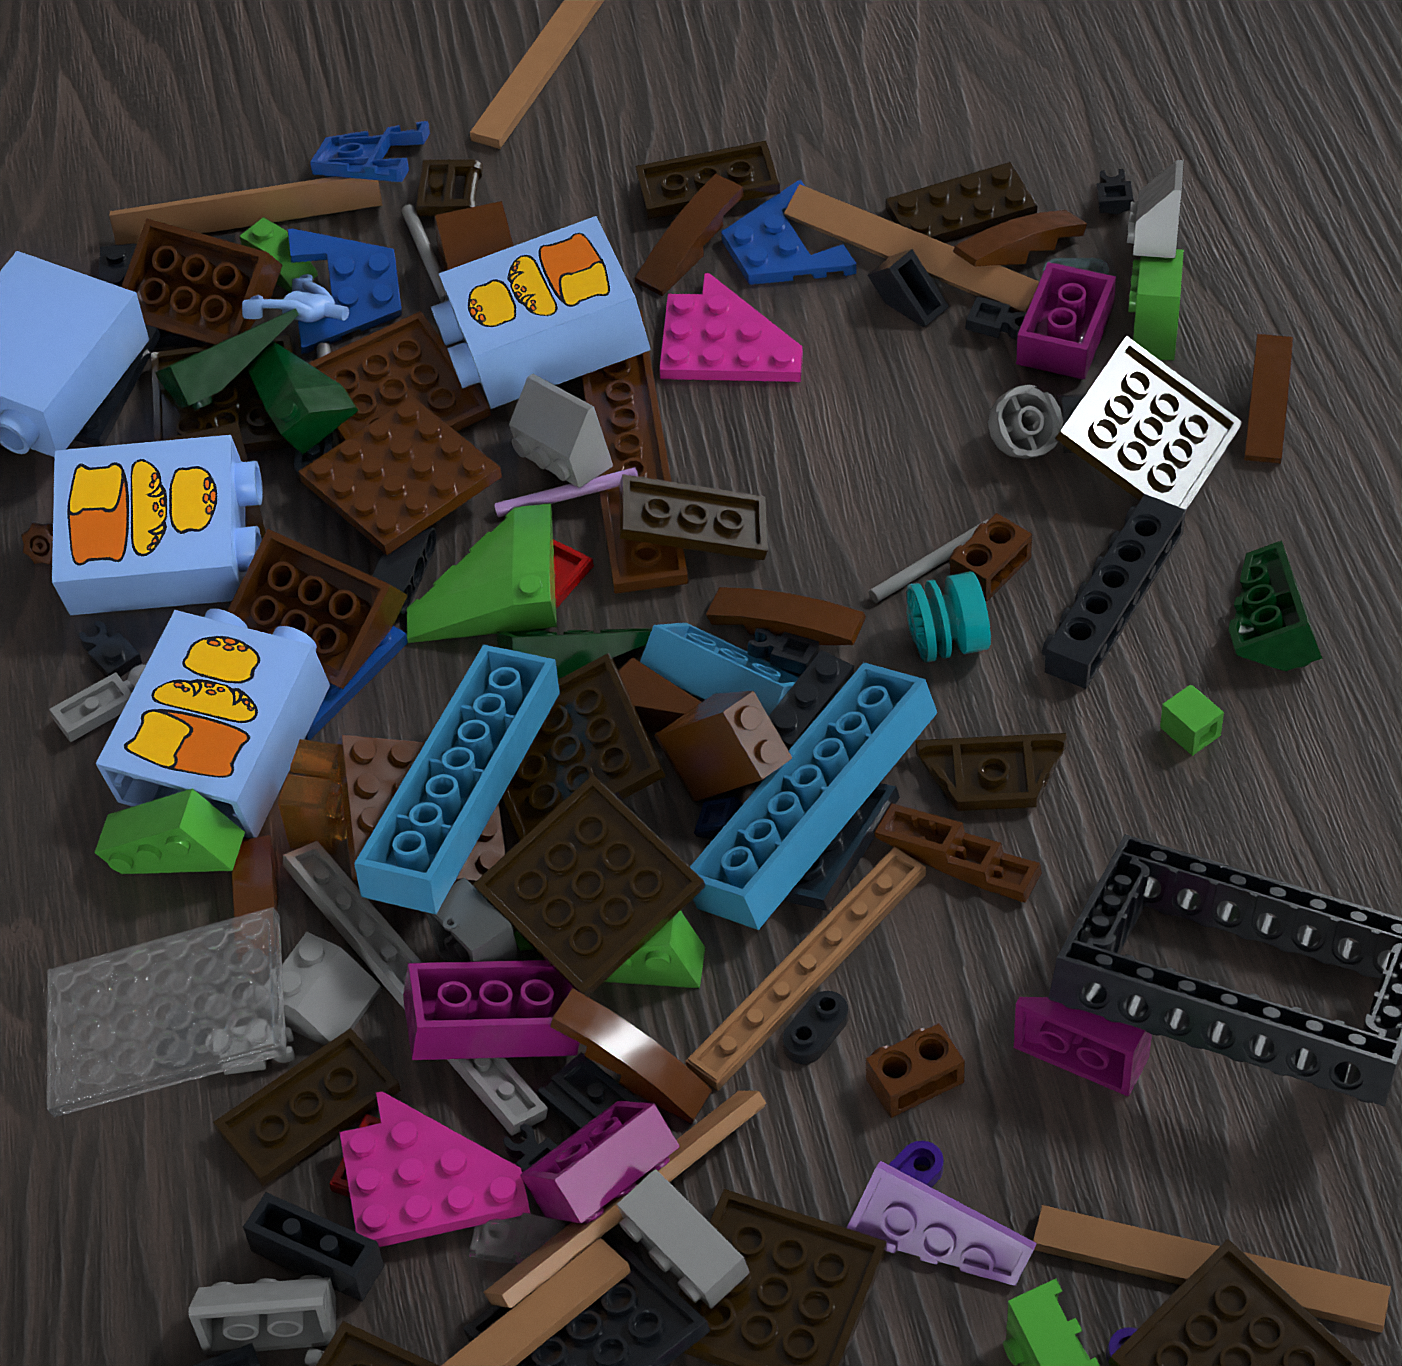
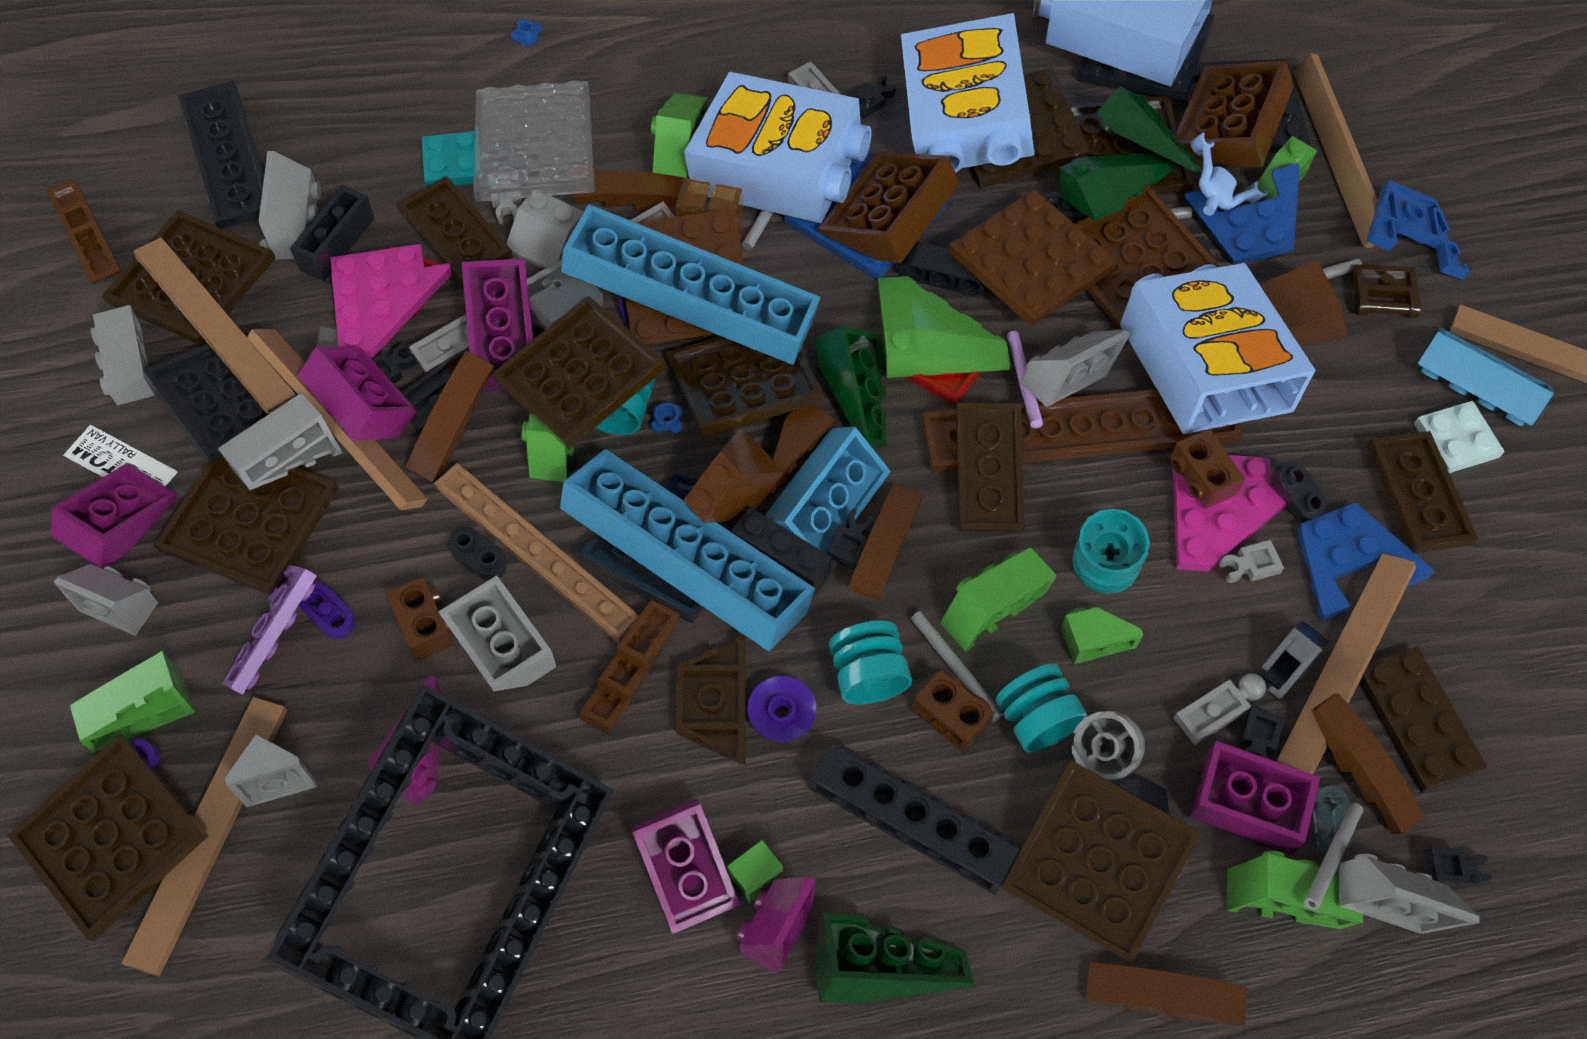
camera: 85 degrees right, 10 degrees up
(172, 1130) = (449, 156): none -> teal plate
(566, 120) = (1485, 376): none -> dark azure slope
(633, 146) = (1461, 436): none -> light aqua plate
(688, 233) = (1347, 473): reddish brown slope -> none
(695, 332) = (1213, 465): none -> reddish brown brick
(712, 269) = (1299, 492): none -> black plate
(796, 311) = (1254, 560): none -> light grey plate
(798, 416) = (1117, 536): none -> teal wheel
(857, 517) = (996, 594): none -> bright green wedge
(891, 440) = (1097, 634): none -> bright green slope
(937, 968) = (498, 637): none -> light grey slope
(965, 348) = (1219, 707): none -> light grey plate
(989, 473) = (1041, 707): none -> teal wheel
(1002, 693) = (785, 694): none -> dark purple dish
(1126, 257) = (1333, 856): none -> light grey piece
(1140, 1188) = (267, 773): none -> light grey slope
(1187, 783) = (685, 865): none -> magenta slope
(1254, 674) = (777, 922): none -> magenta slope

